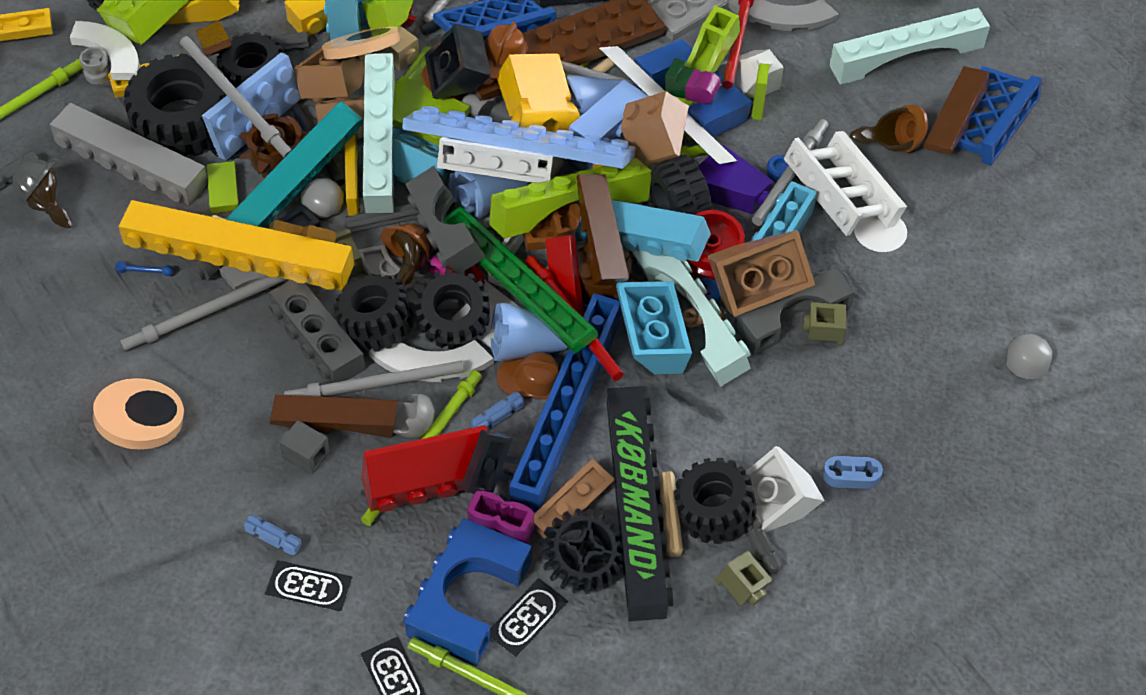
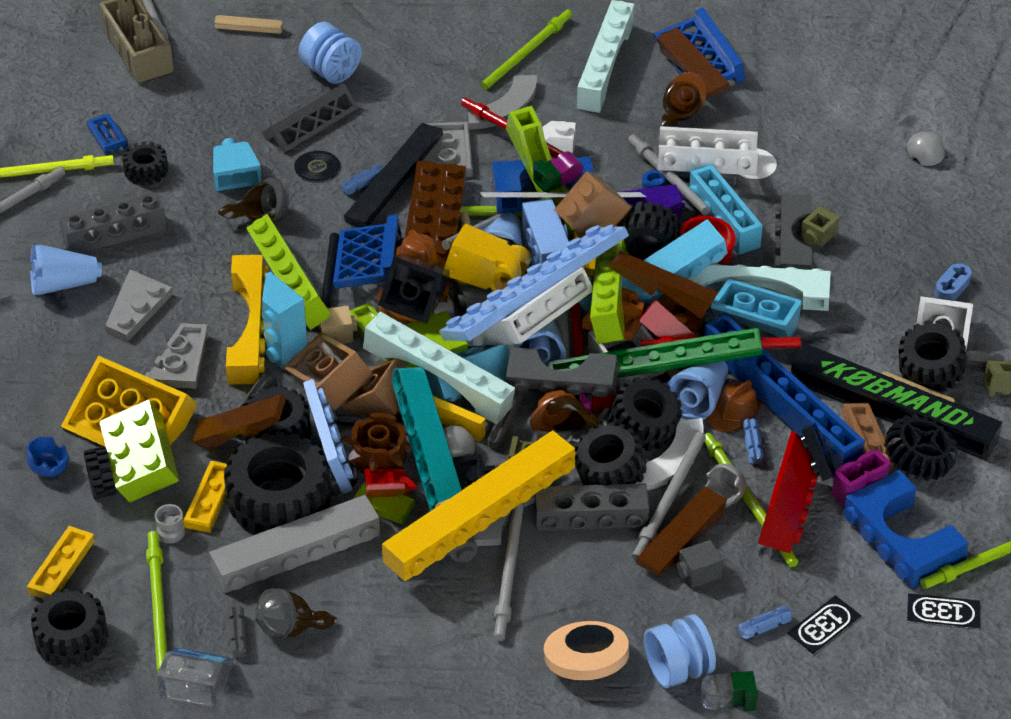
camera: 55 degrees left, 10 degrees down
(116, 45) = (141, 505): white tile -> none
(121, 267) = (410, 605): blue hinge -> none
(162, 541) = (729, 690): none -> leg
(171, 480) = (679, 651): none -> light blue wheel
(233, 173) = (388, 482): none -> red slope
(268, 132) = (385, 429): light grey bar -> none
(308, 231) = (508, 453): pearl gold tile -> none
(361, 43) = (336, 331): light nougat piece -> none
(527, 617) = (943, 509): black sticker -> none
(760, 91) = (585, 143): lime tile -> none
(761, 272) = (765, 226): medium nougat slope -> none

